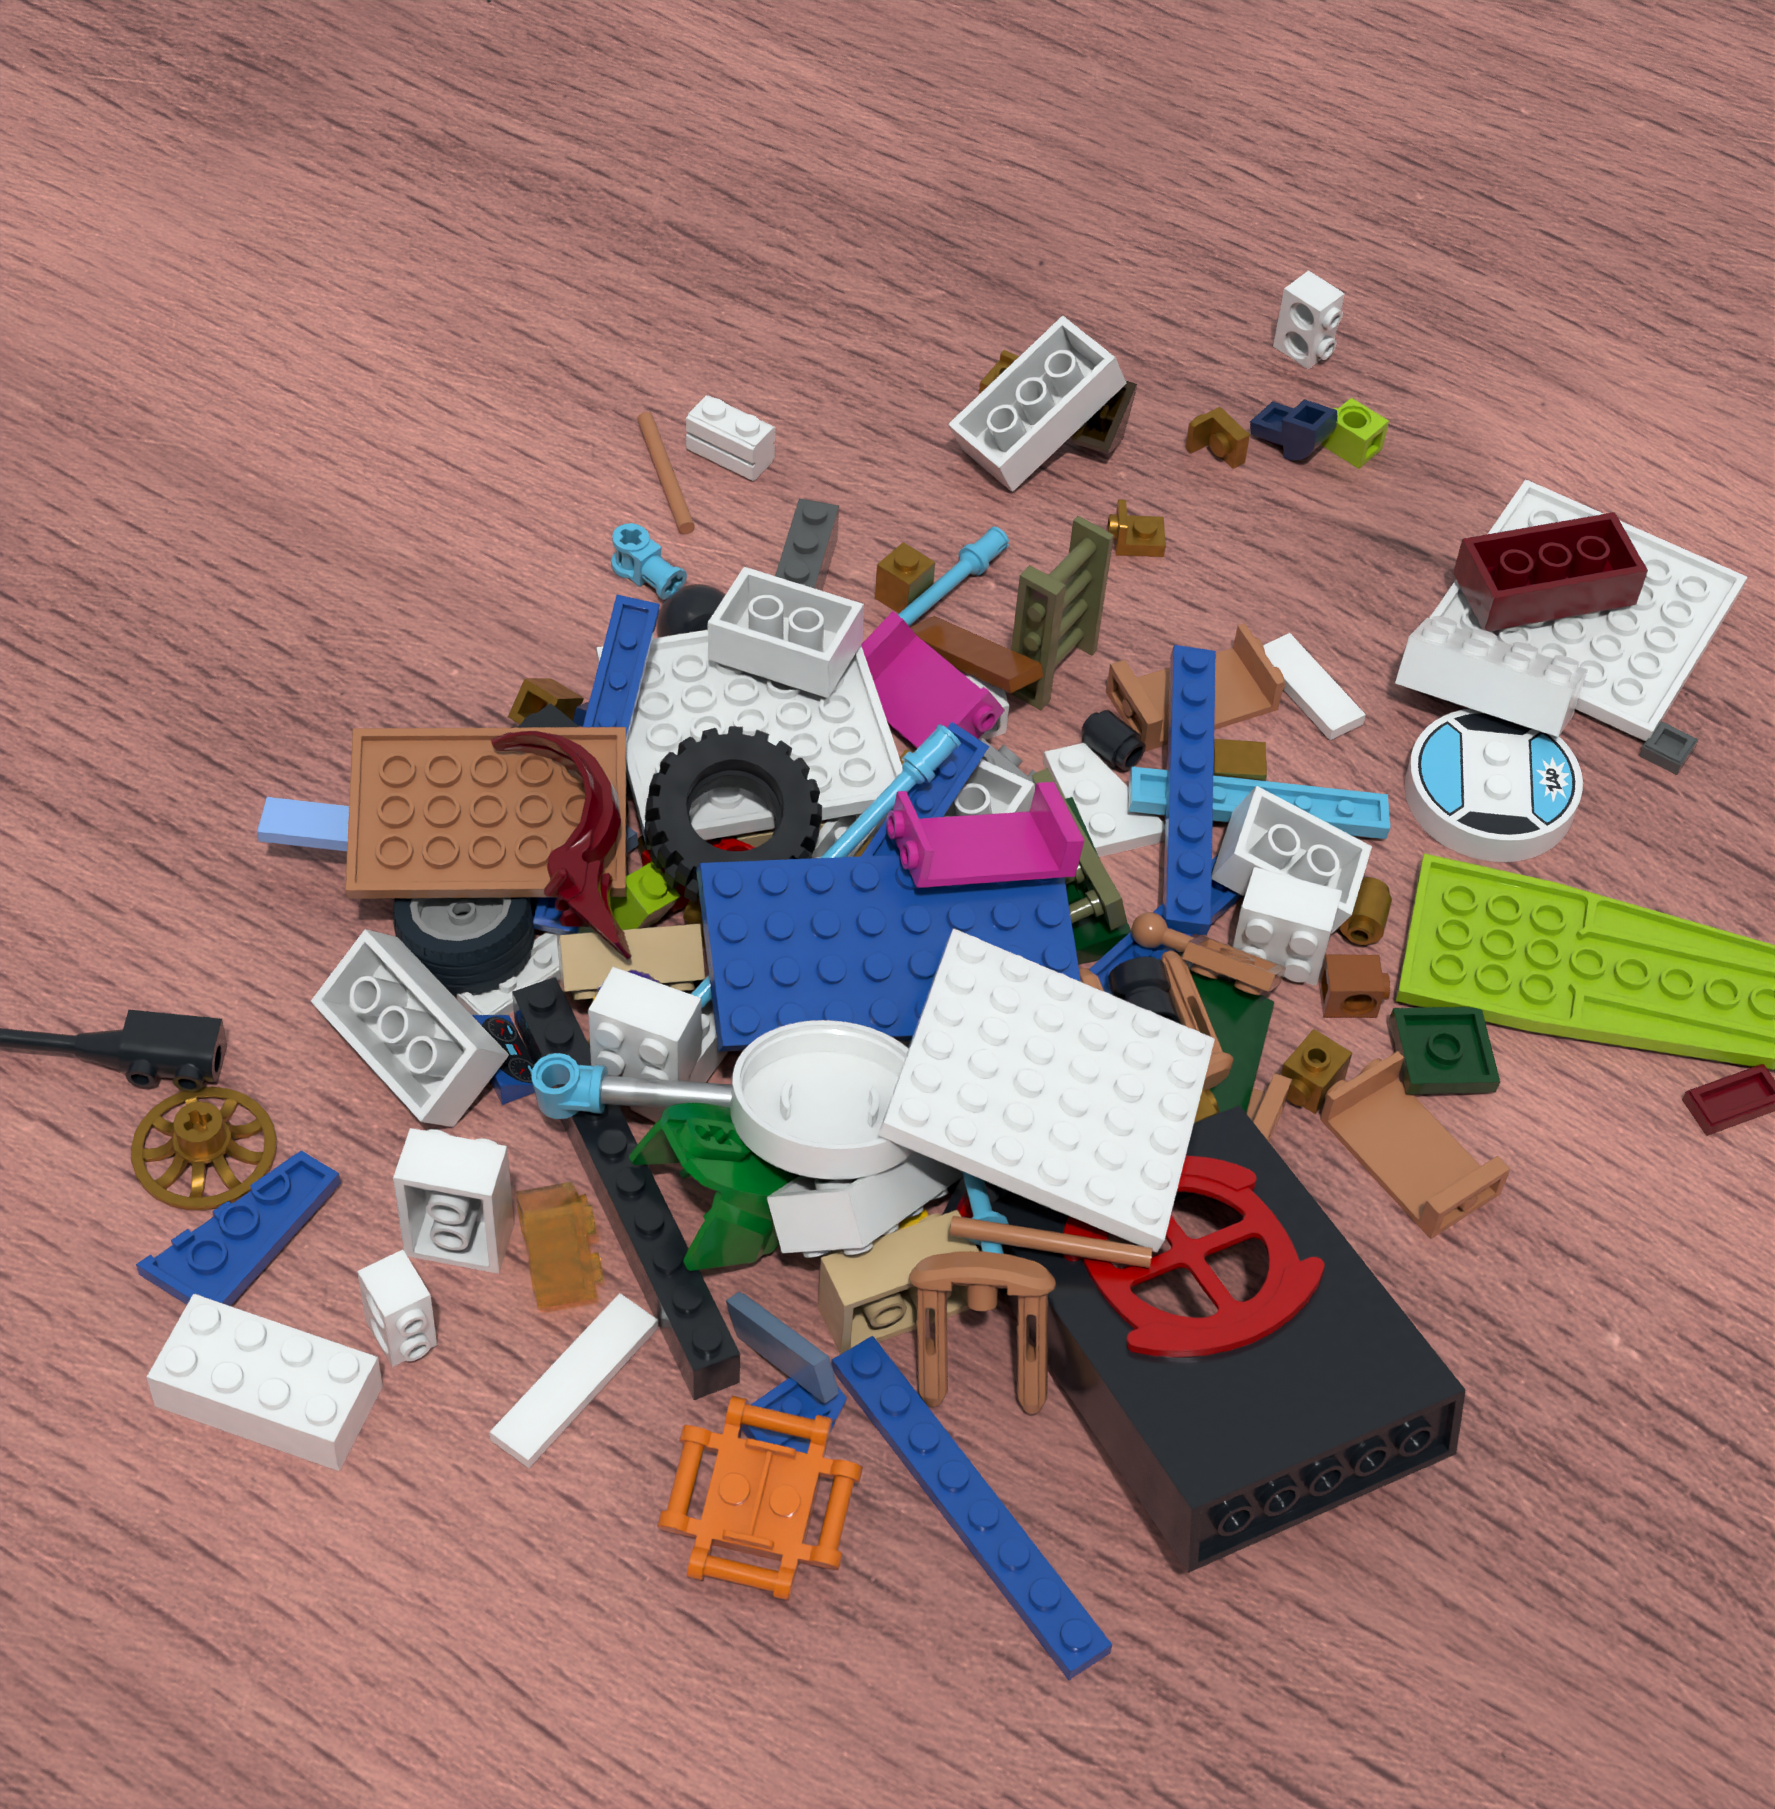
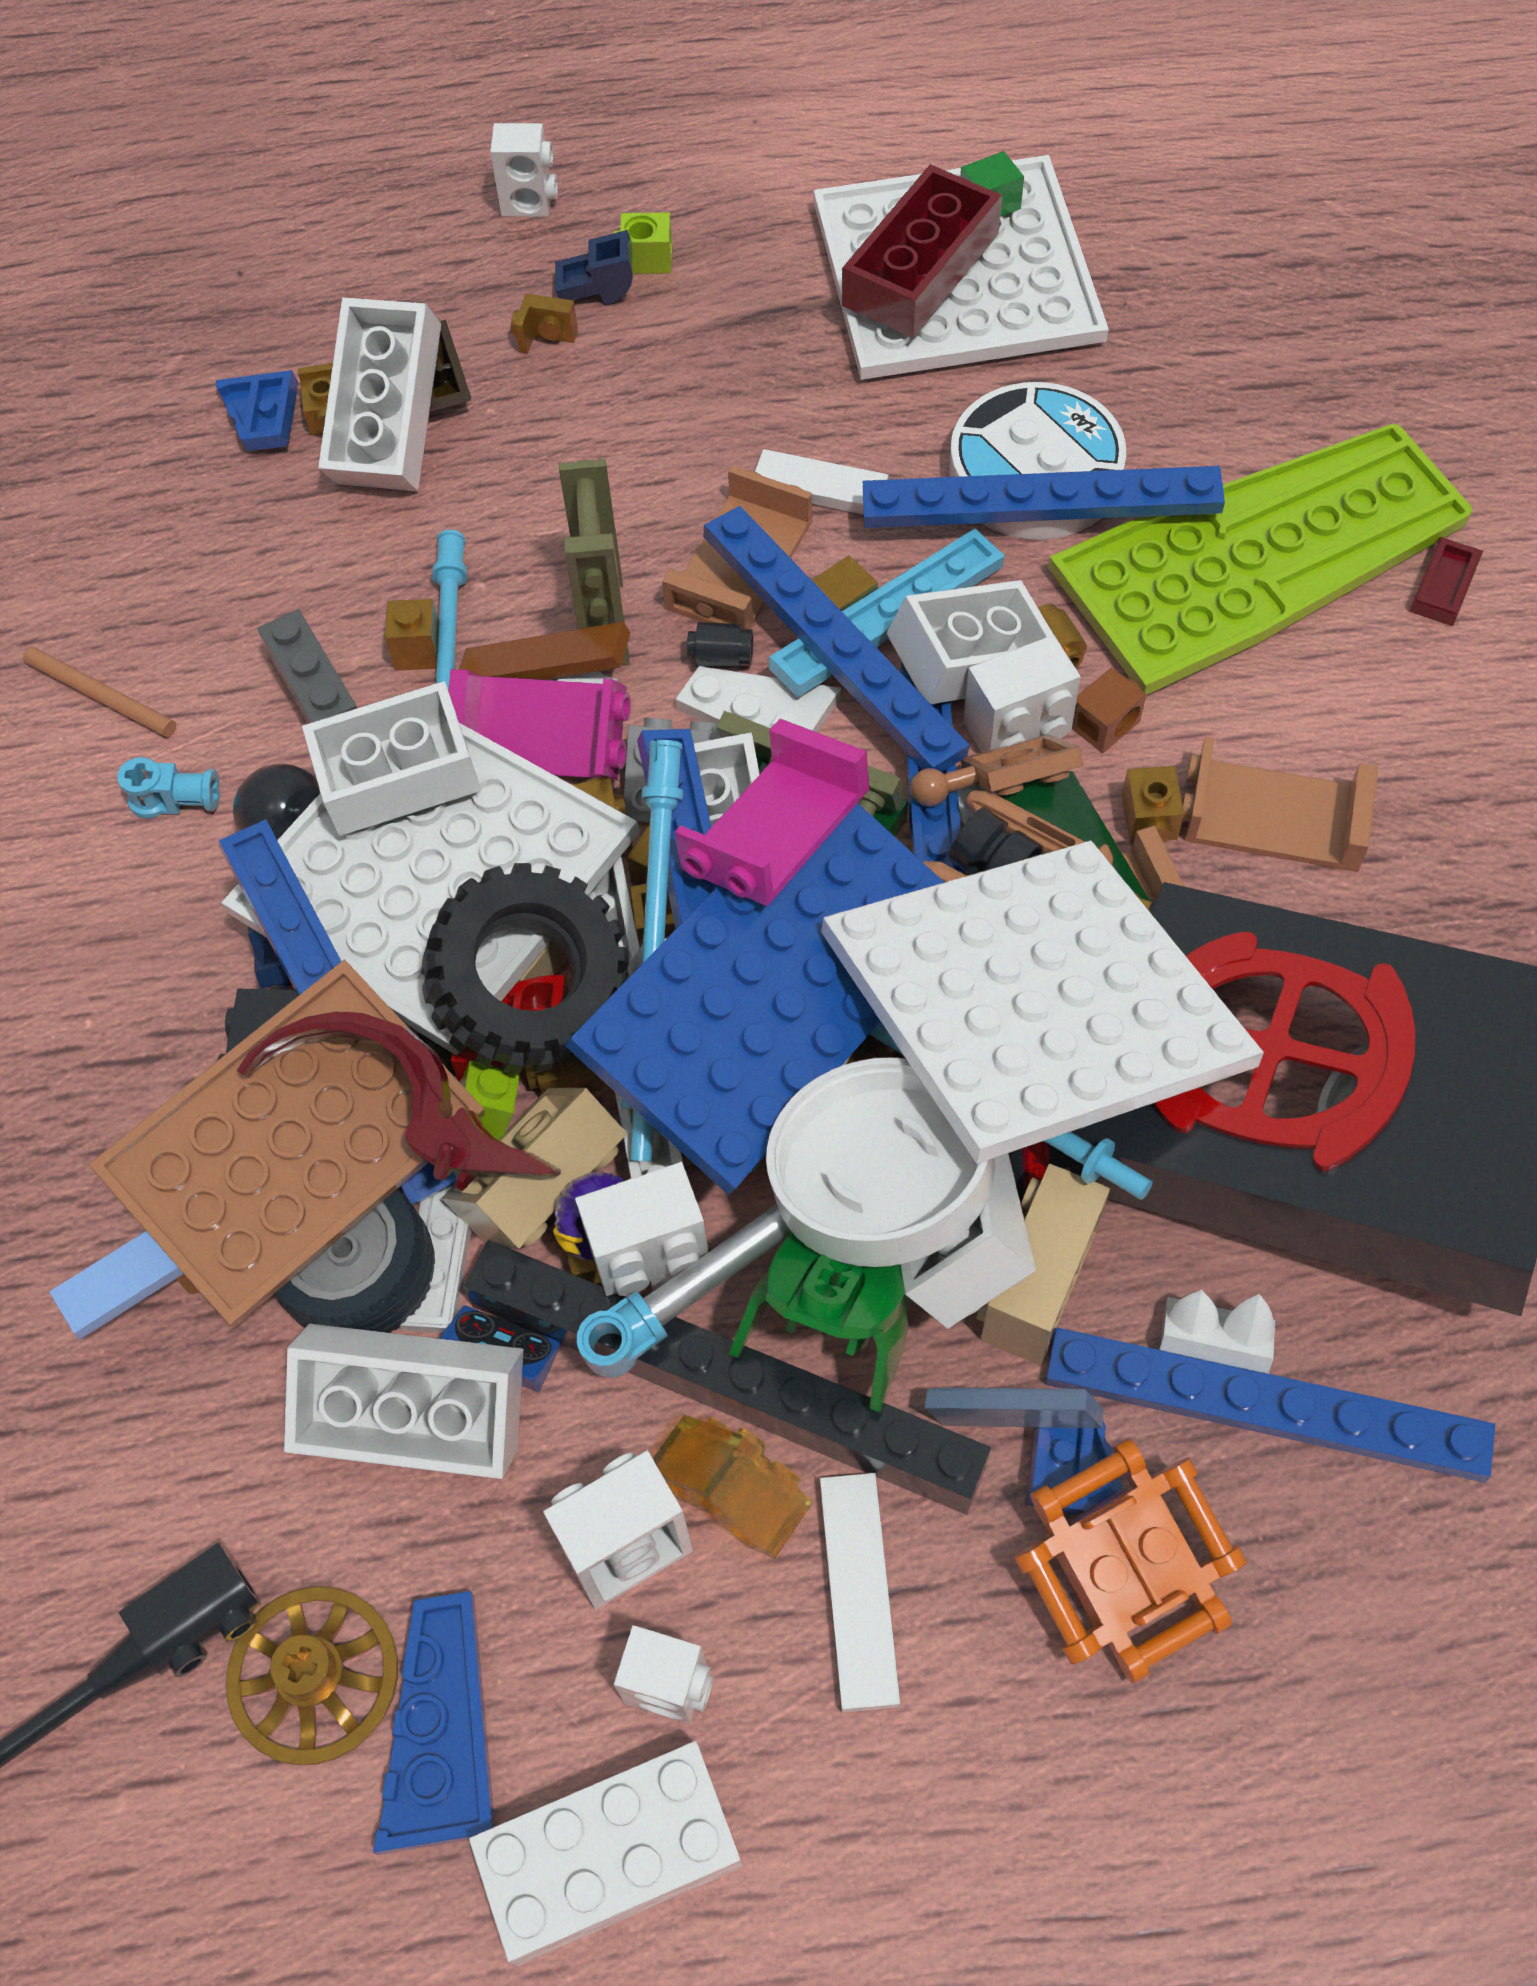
camera: 35 degrees left, 10 degrees up
(540, 692) = (212, 989): pearl gold brick -> none
(730, 437) = (131, 617): white brick -> none
(957, 362) = (261, 407): none -> blue wing
(982, 1275) = (1147, 1213): nougat piece -> none
(984, 1436) = (1219, 1335): none -> white tile
(1051, 1241) = (1170, 1130): nougat bar -> none
(1136, 533) = (557, 447): pearl gold bracket -> none
(1444, 1050) = (1225, 705): dark green plate -> none
(1460, 807) = (1043, 496): none -> blue plate
(1492, 675) = (962, 368): white brick -> none
(1667, 565) = (998, 175): none -> green brick
(1668, 748) = (1126, 335): dark grey tile -> none

